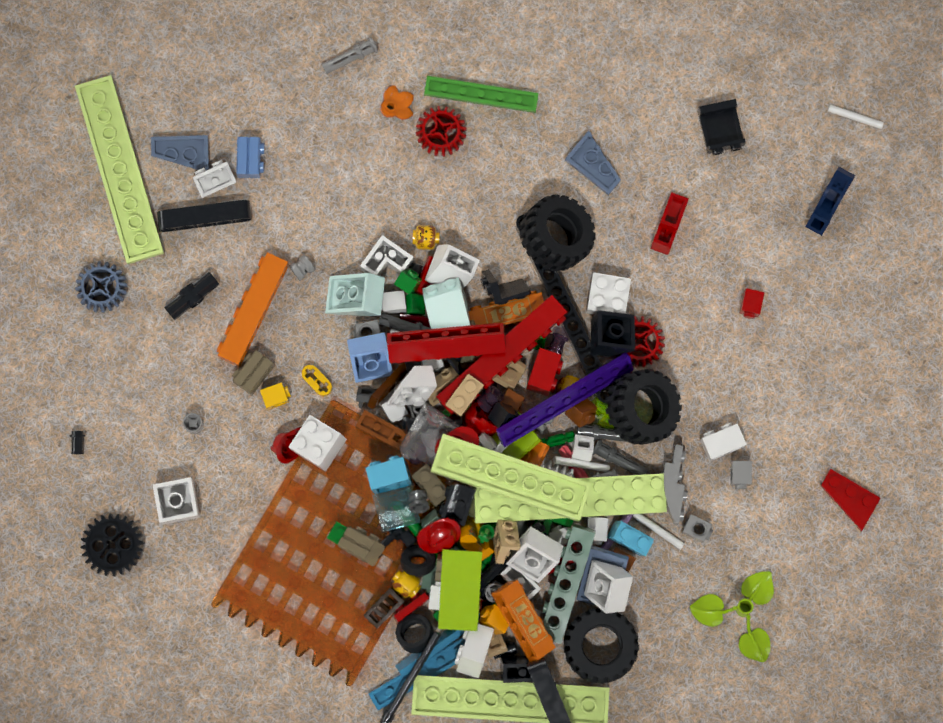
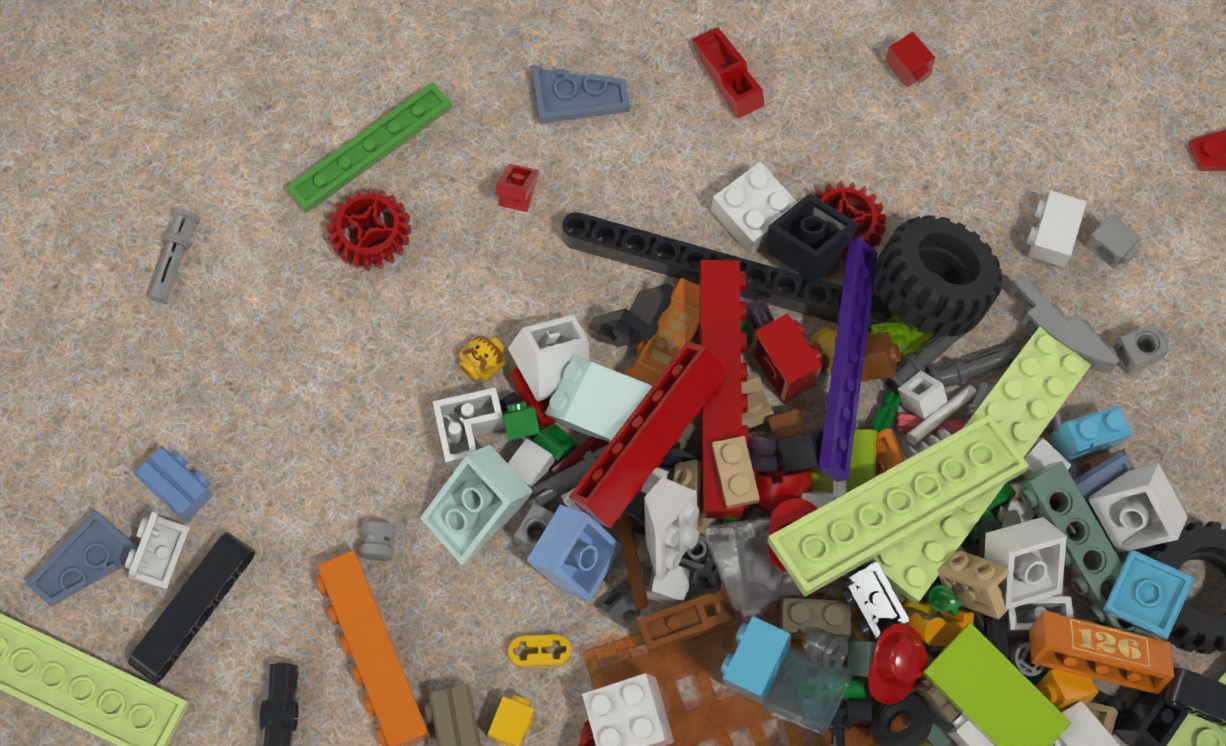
camera: 45 degrees left, 10 degrees down
(399, 102) = (285, 248): orange plate -> none
(522, 178) = (516, 187): none -> red slope
(541, 244) = (653, 200): black tyre -> none
(569, 620) = (1148, 594): none -> medium azure tile
(658, 530) = (1105, 396): white bar -> none

